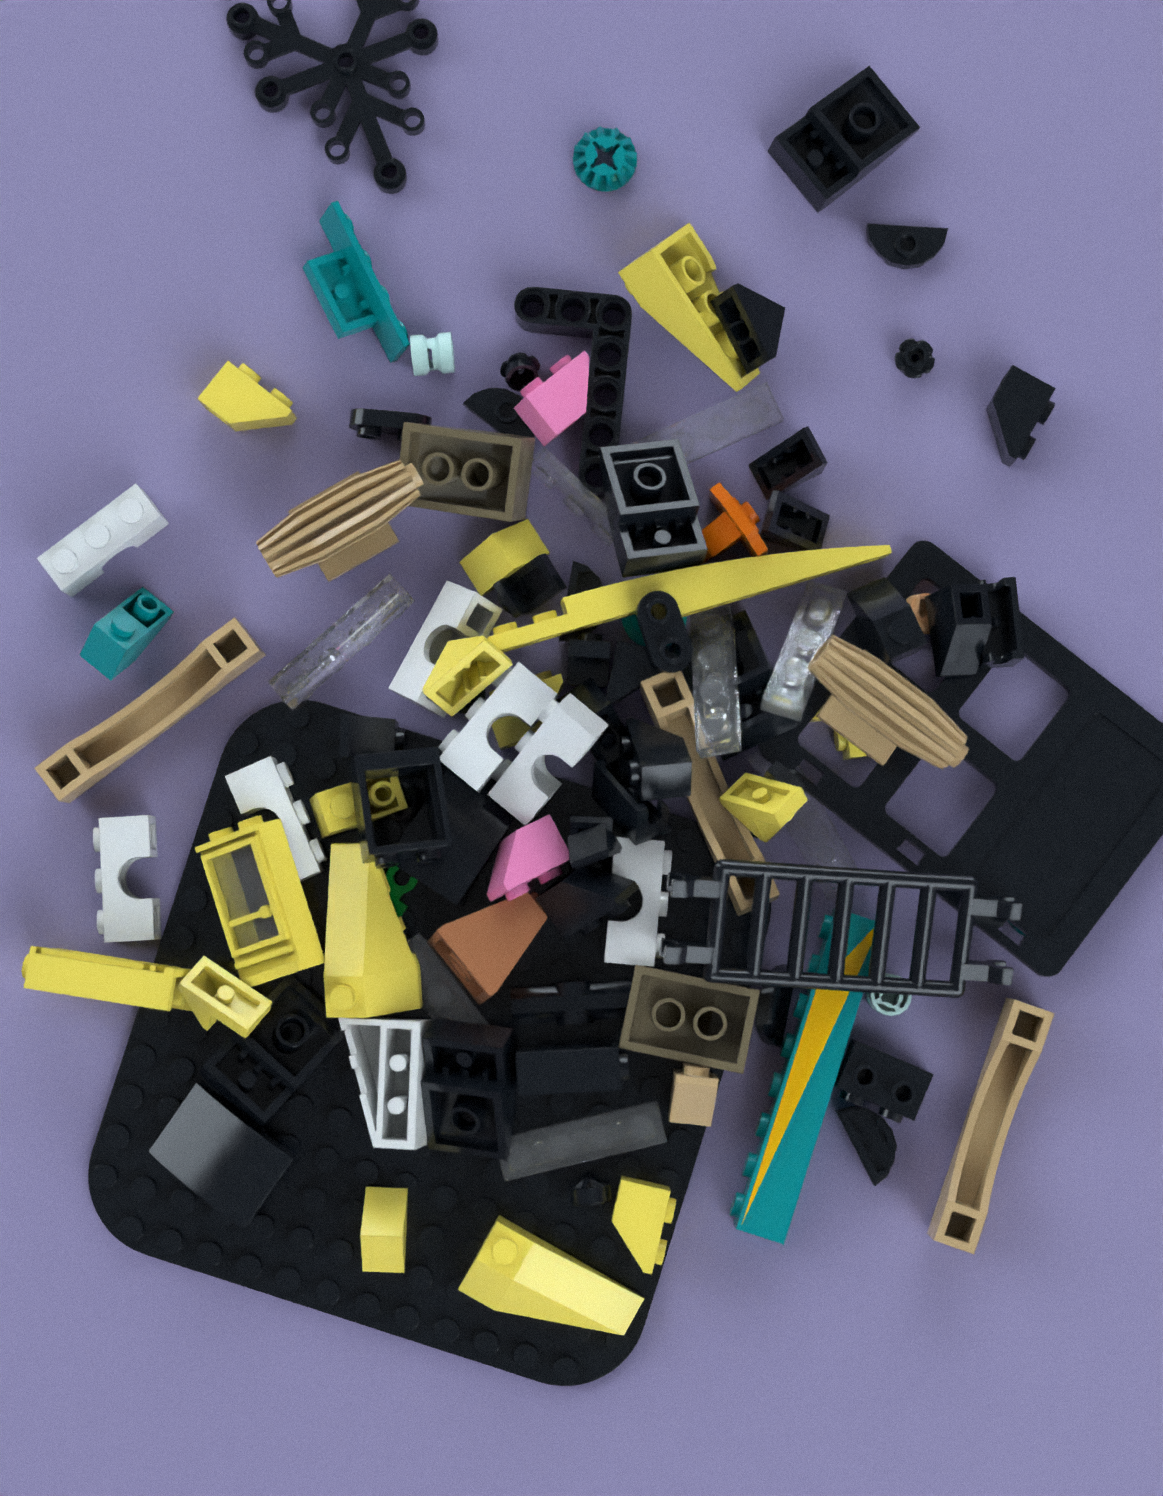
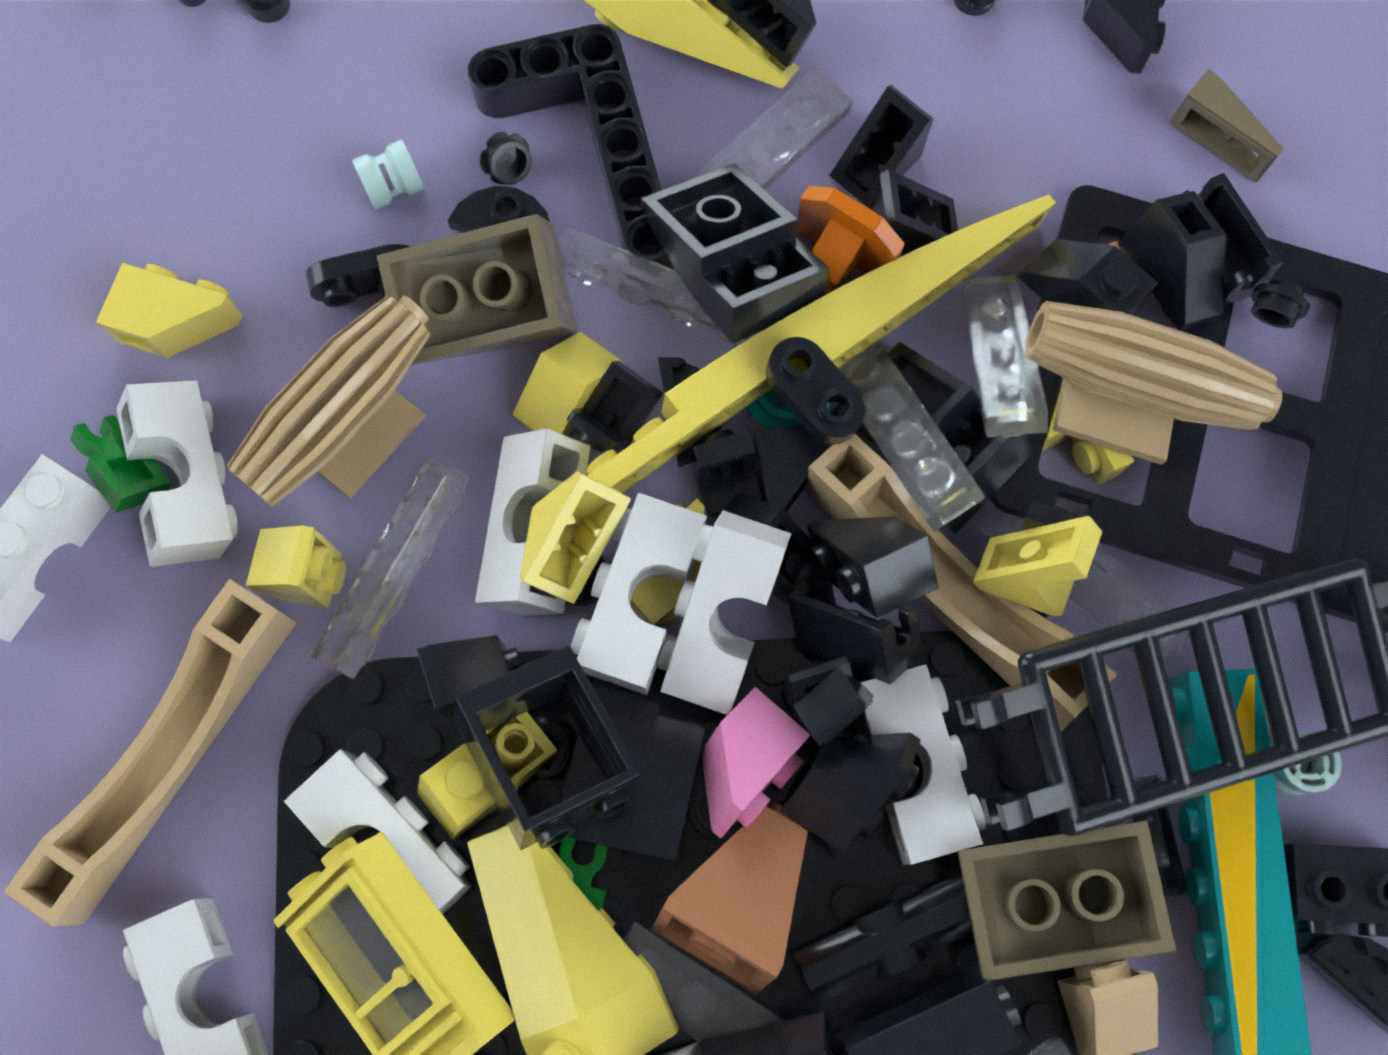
camera: 25 degrees left, 10 degrees down
(125, 633) = (89, 661): teal slope -> none
(182, 508) = (119, 480): none -> green plate
(227, 492) = (175, 427): none -> white arch
(278, 620) = (296, 566): none -> light yellow slope
(351, 289) = (259, 133): teal bracket -> none
(558, 401) = (564, 171): bright pink slope -> none
(1016, 682) = (1279, 303): none -> black plate
(1042, 530) = (1226, 127): none -> dark tan slope

